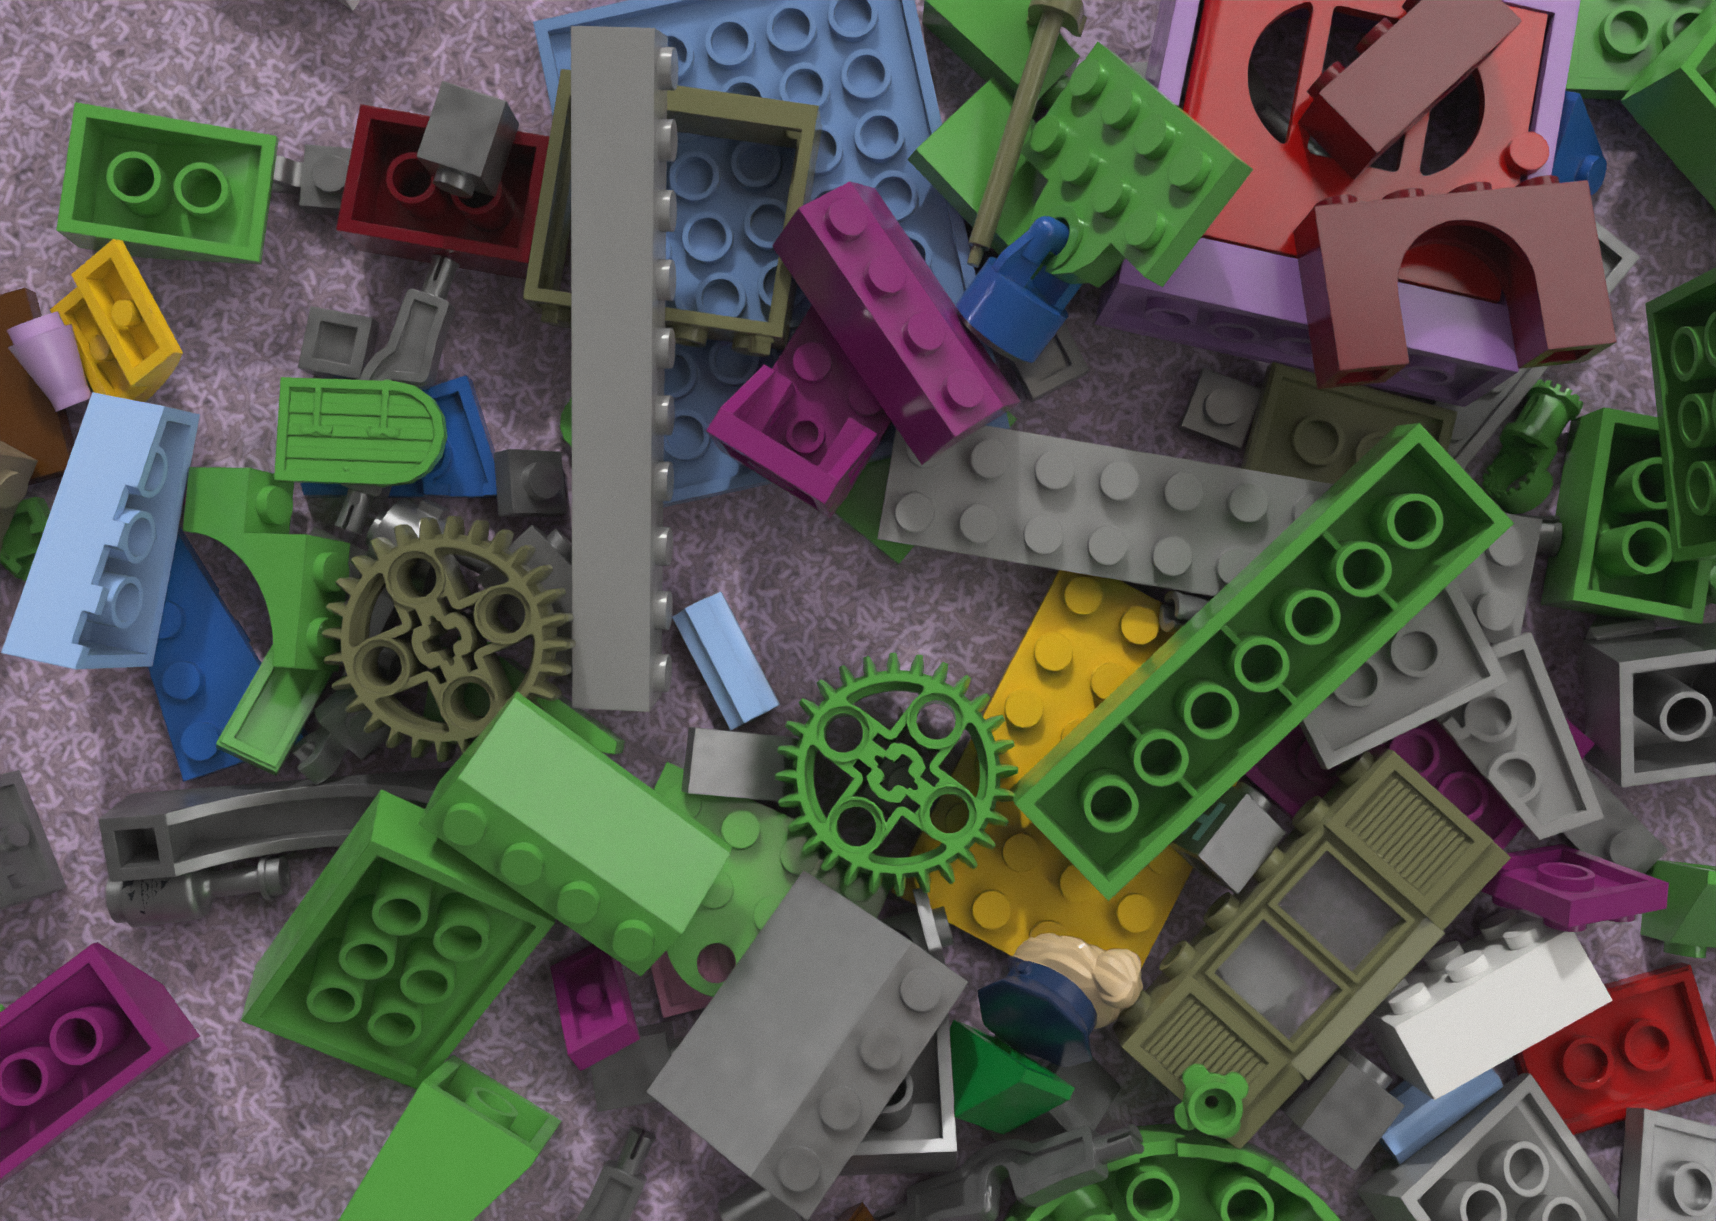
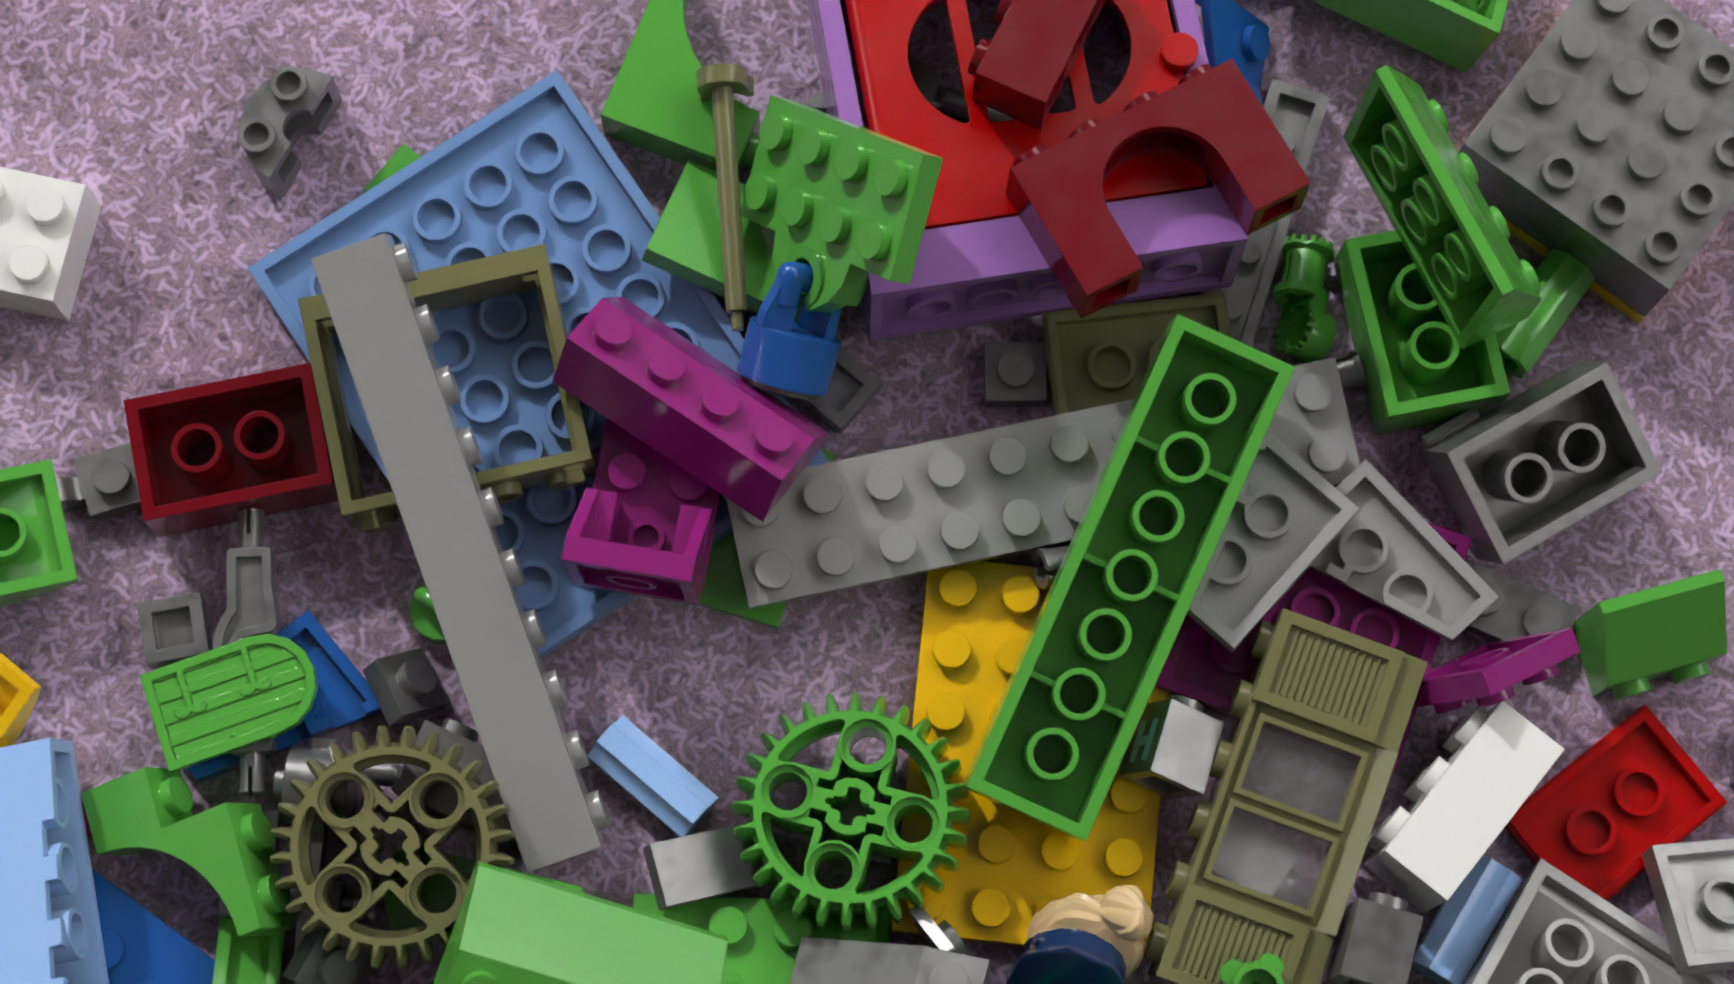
camera: 25 degrees left, 10 degrees down
(467, 141) = (240, 394): flat silver brick -> none

